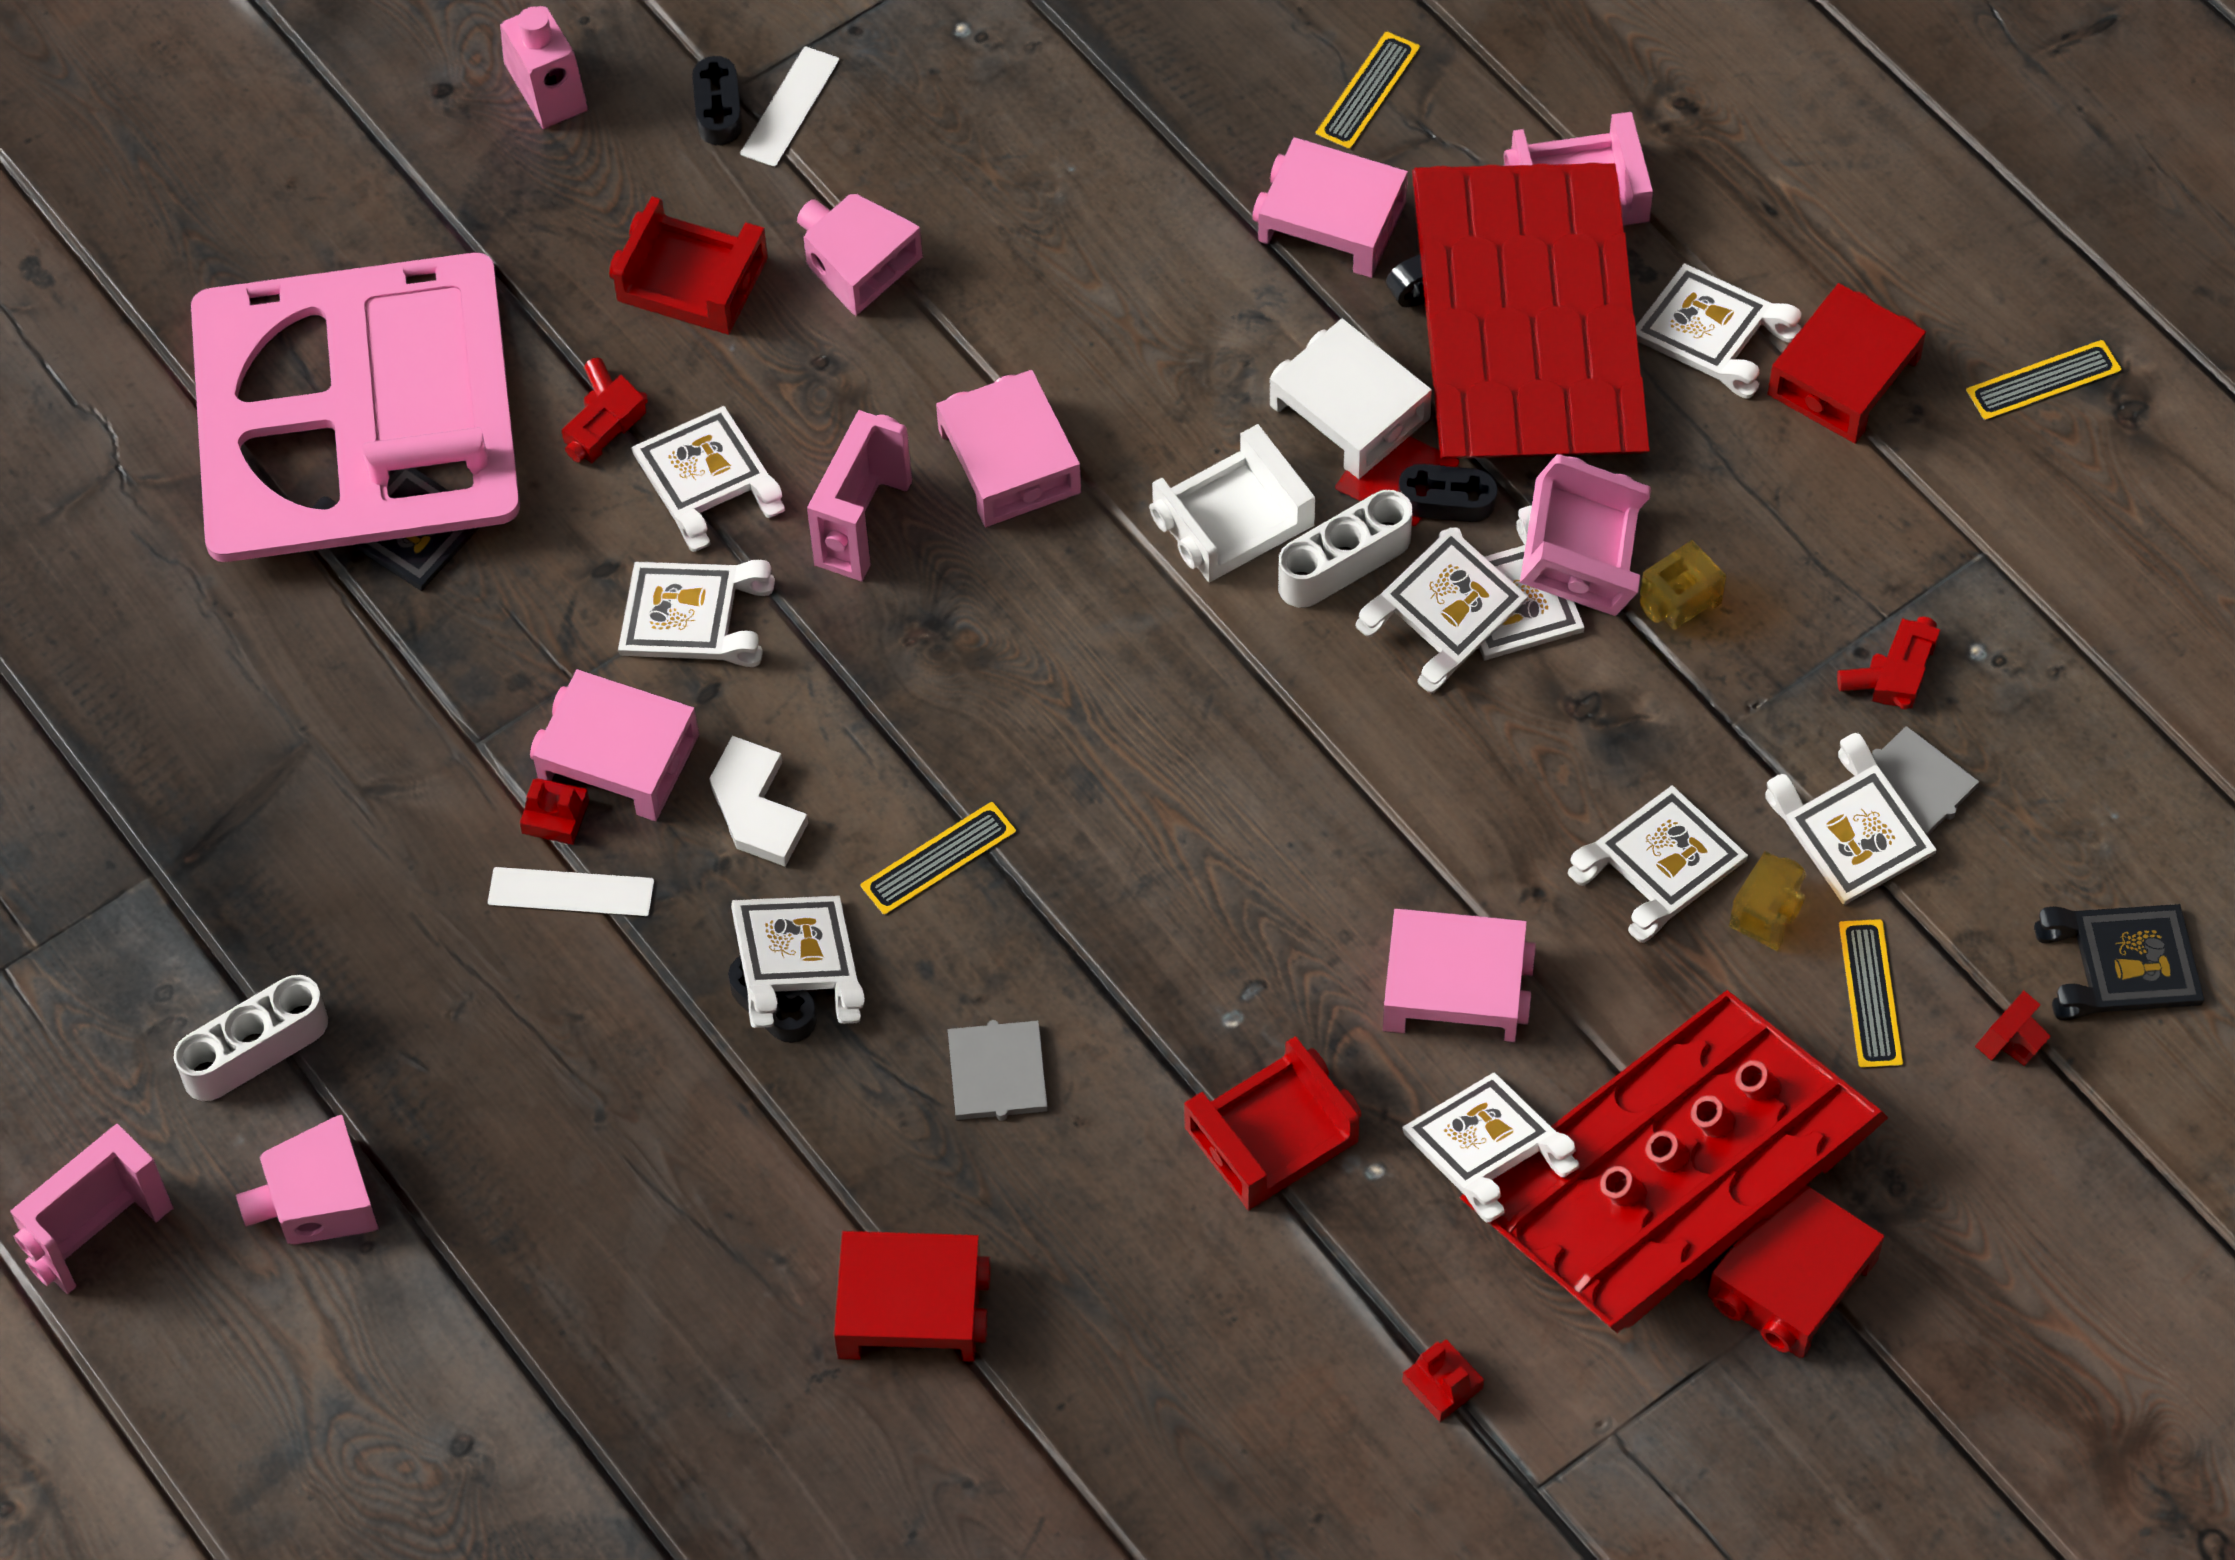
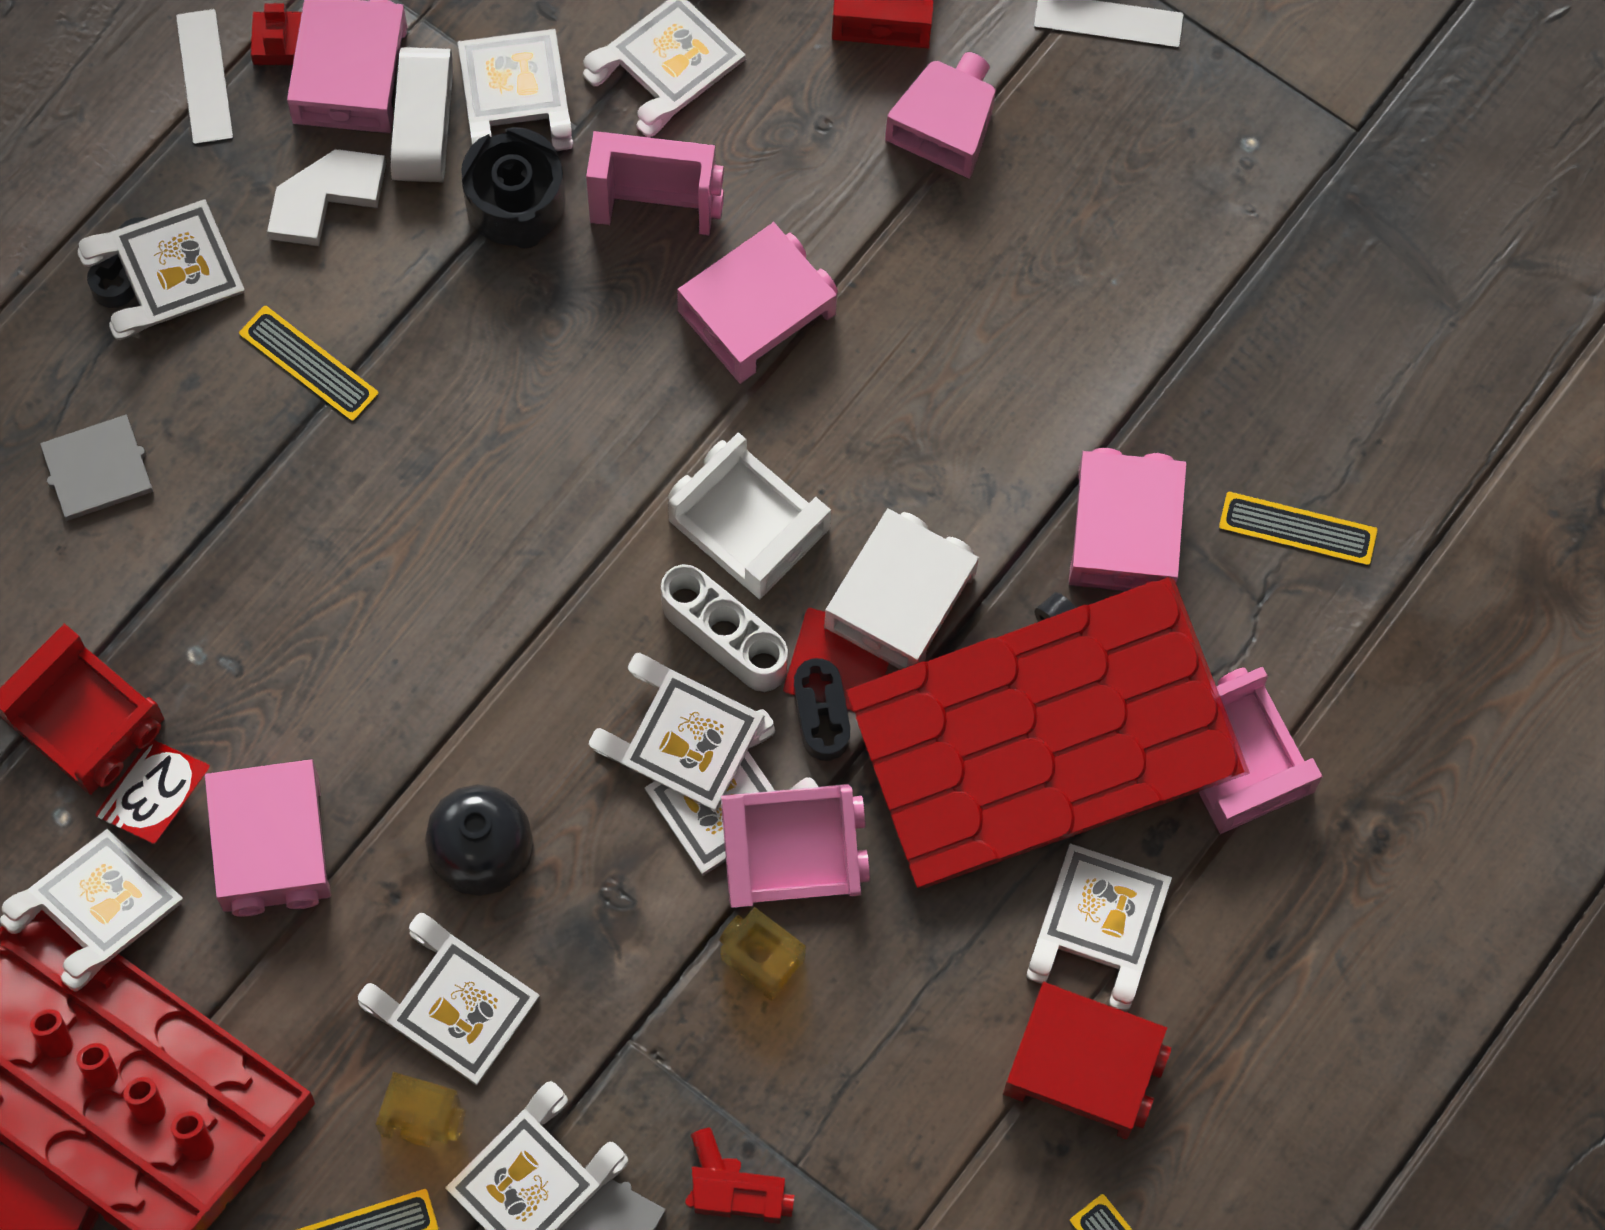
camera: 70 degrees right, 10 degrees up
(723, 695) = (421, 114): none -> white beam
(817, 620) = (513, 187): none -> black brick
(1382, 1068) = (152, 791): none -> sticker
(1503, 800) = (478, 839): none -> black cylinder

